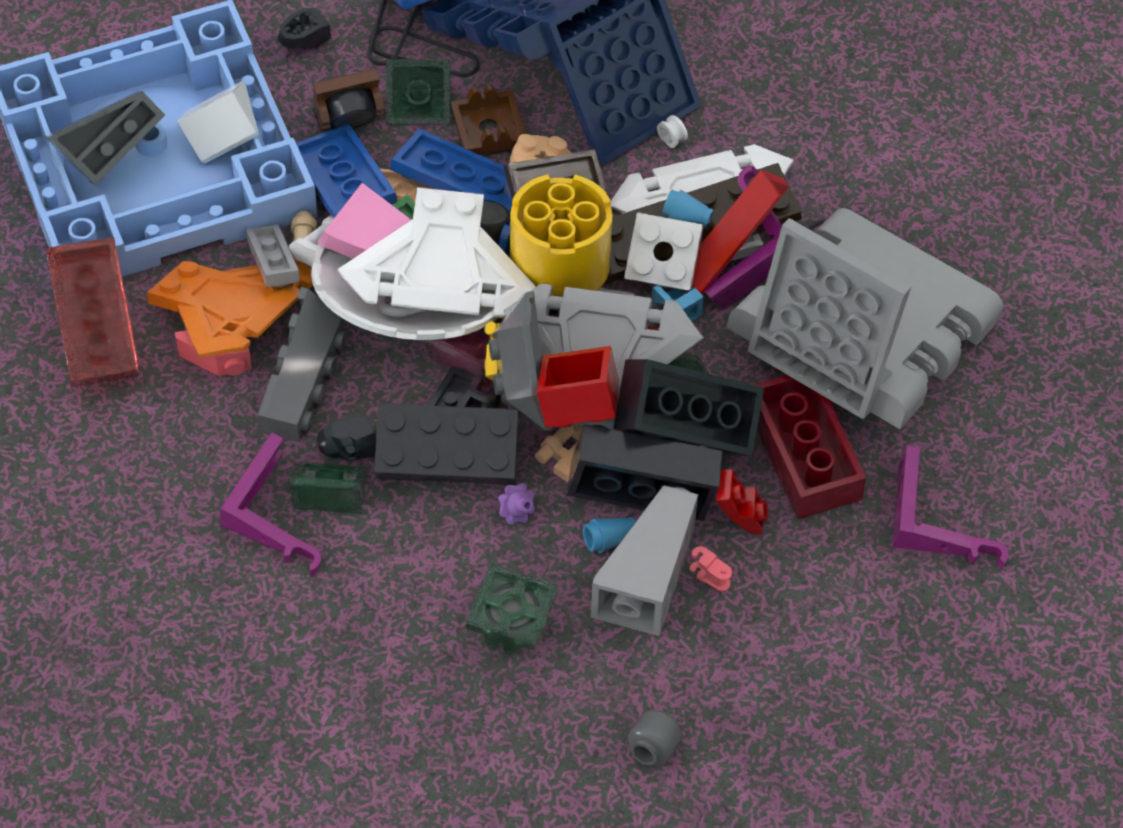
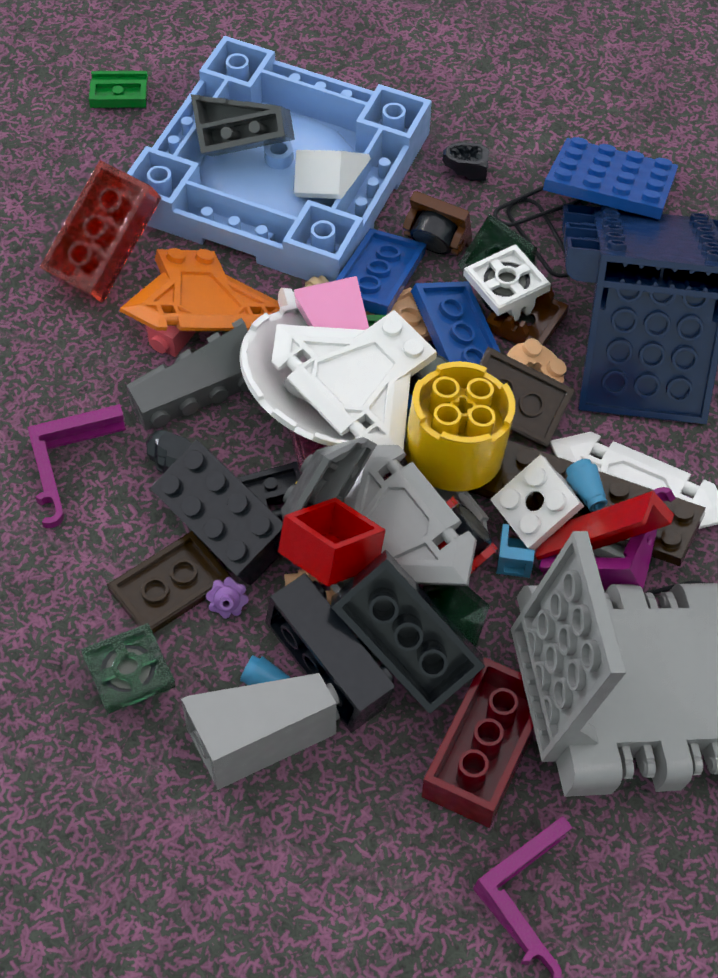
camera: 45 degrees right, 0 degrees up
(272, 255) = (264, 288): light grey plate -> none
(328, 487) = (120, 473): clear green slope -> none
(456, 105) = (507, 282): none -> white piece
(458, 532) = (168, 582): none -> dark brown tile
(654, 737) = (114, 863): dark grey head -> none
(672, 131) = (658, 424): white bush -> none
(712, 571) = (305, 774): coral piece -> none
(741, 503) = (380, 742): red slope -> none

